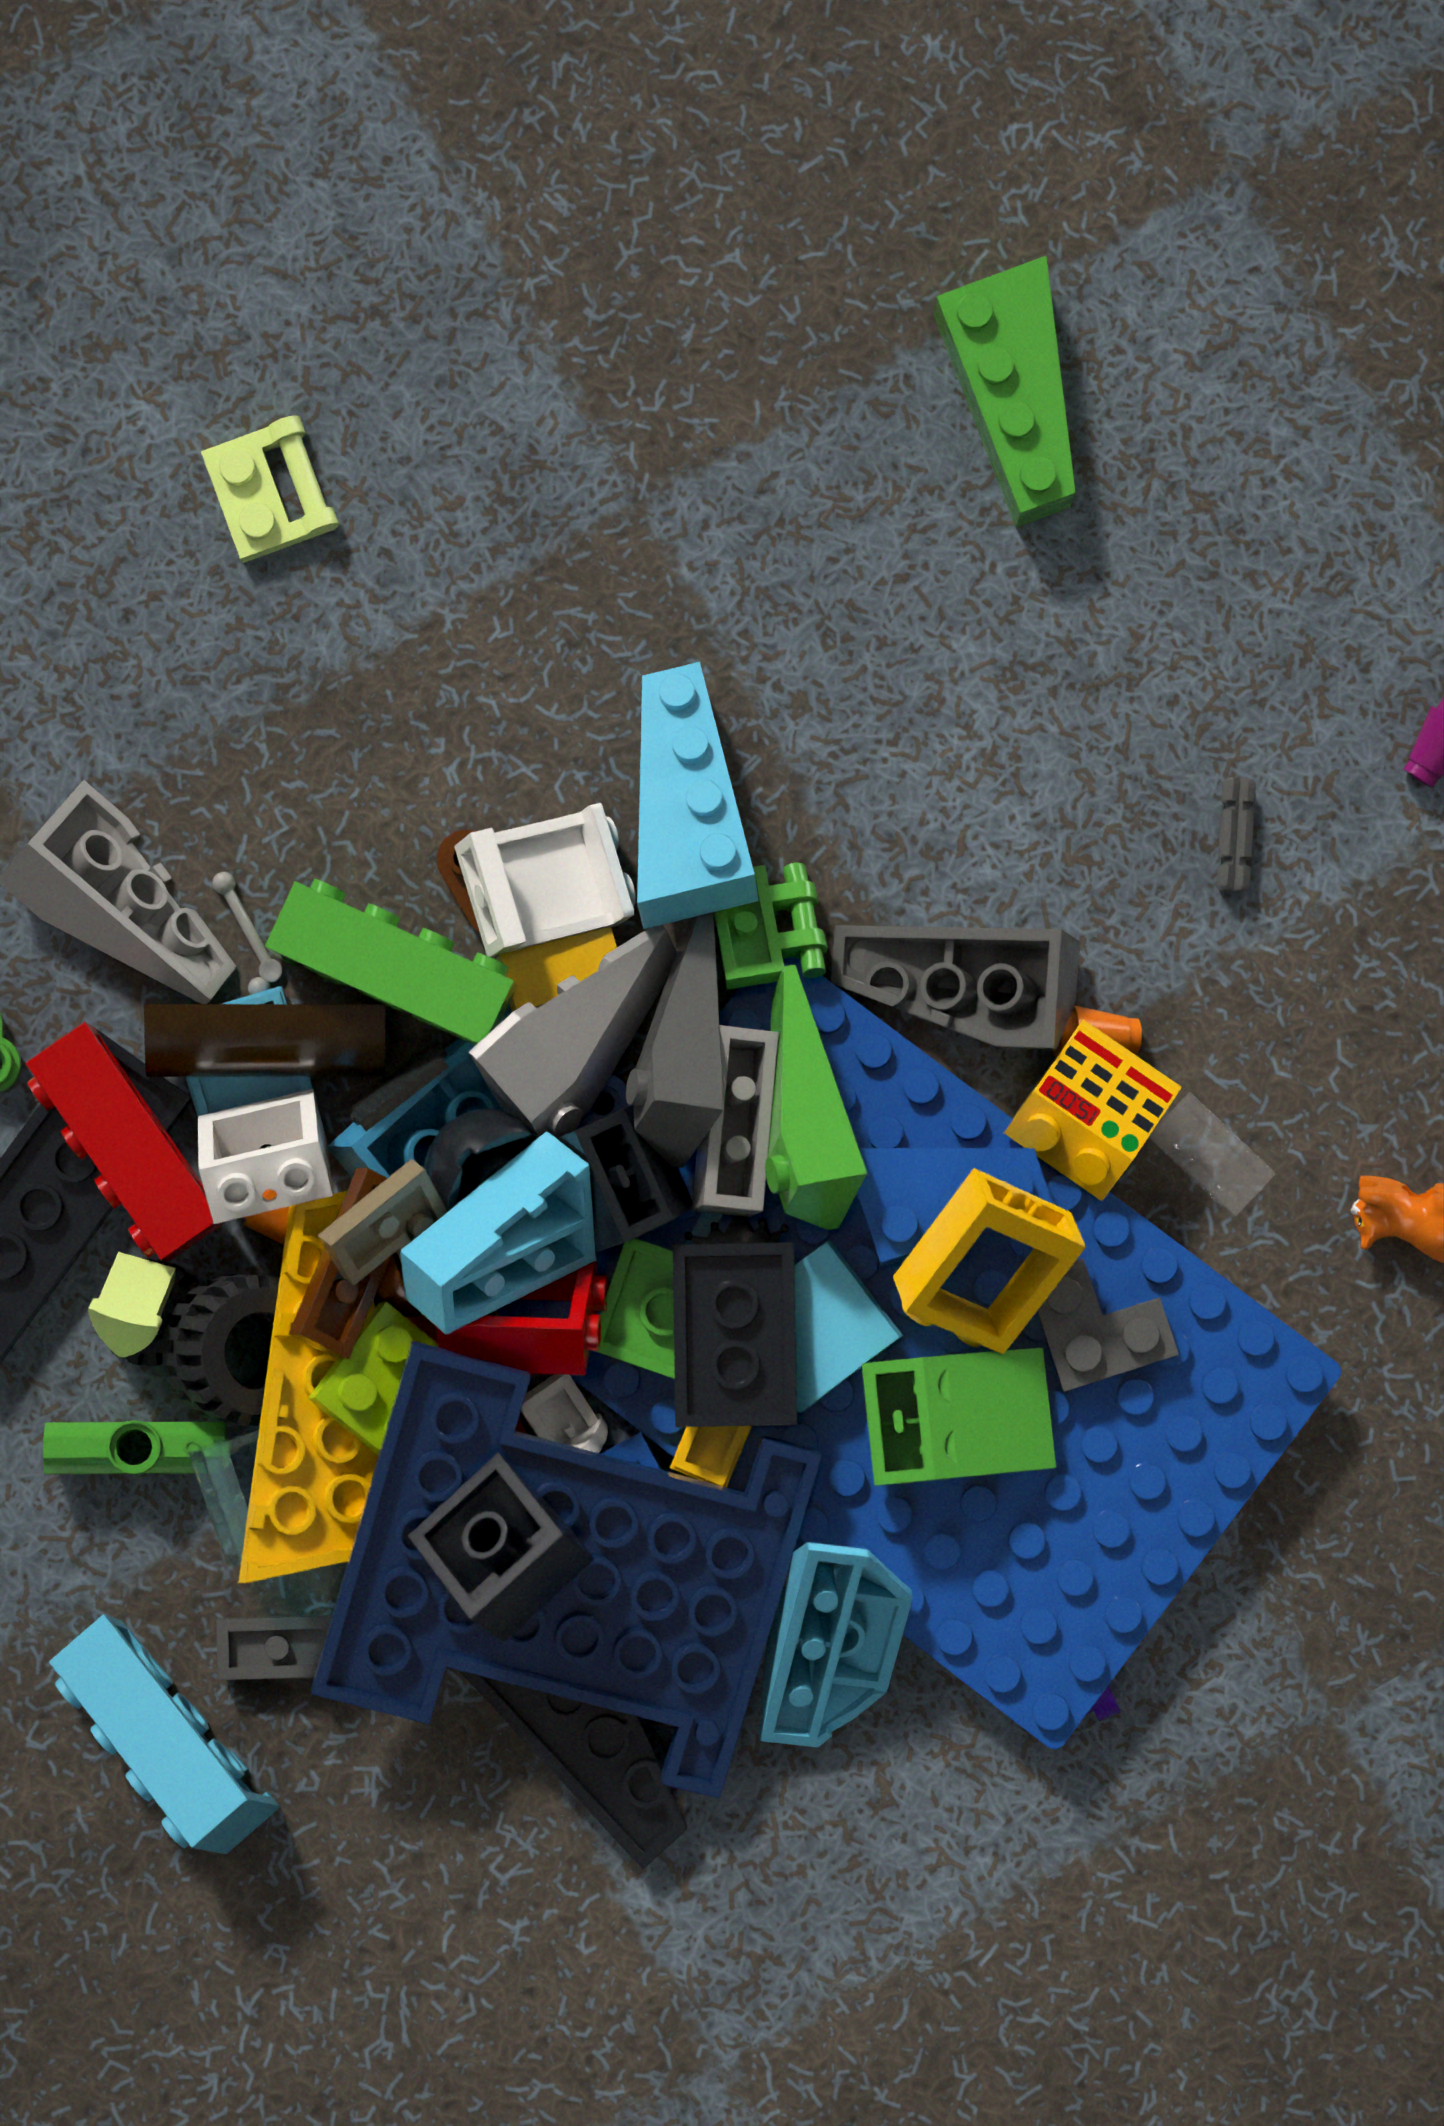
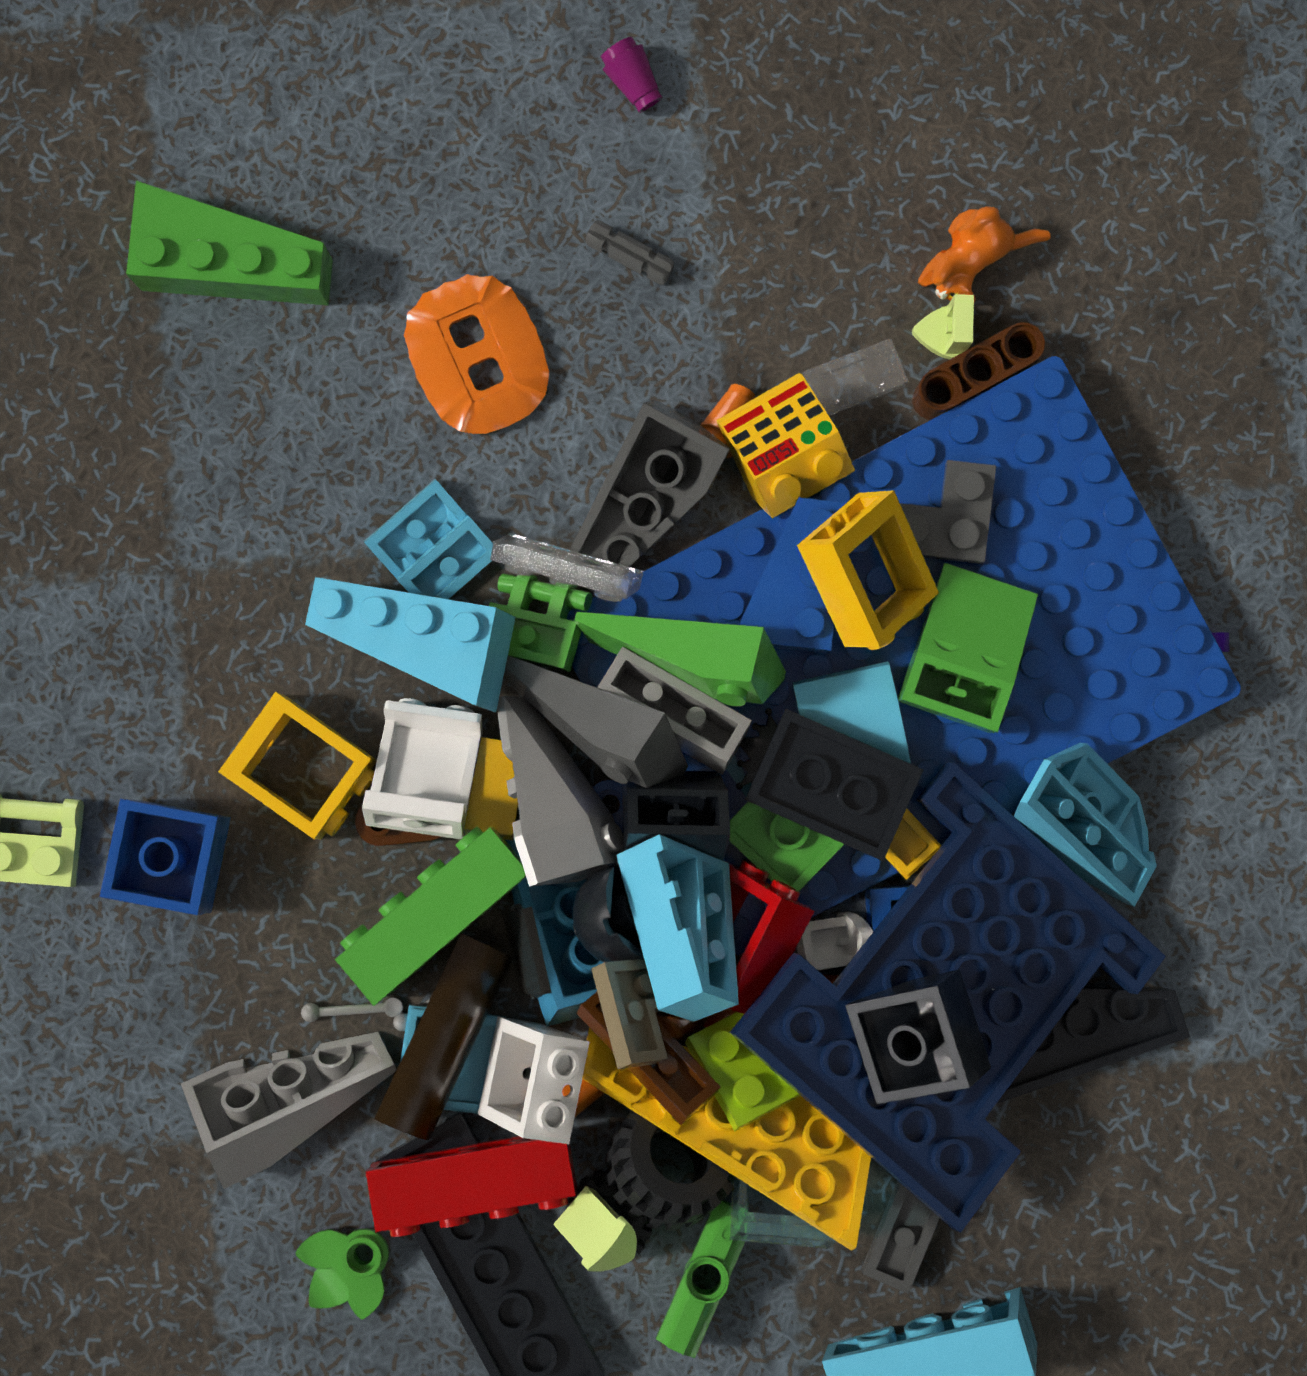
camera: 75 degrees left, 0 degrees up
(320, 646) = (165, 857): none -> blue brick
(497, 686) = (260, 739): none -> yellow window
(798, 771) = (431, 544): none -> medium azure slope
(842, 931) = (566, 567): none -> clear plate
(1070, 745) = (445, 368): none -> orange piece
(1314, 1294) = (992, 355): none -> reddish brown beam
(1318, 1232) = (949, 328): none -> yellowish green tile

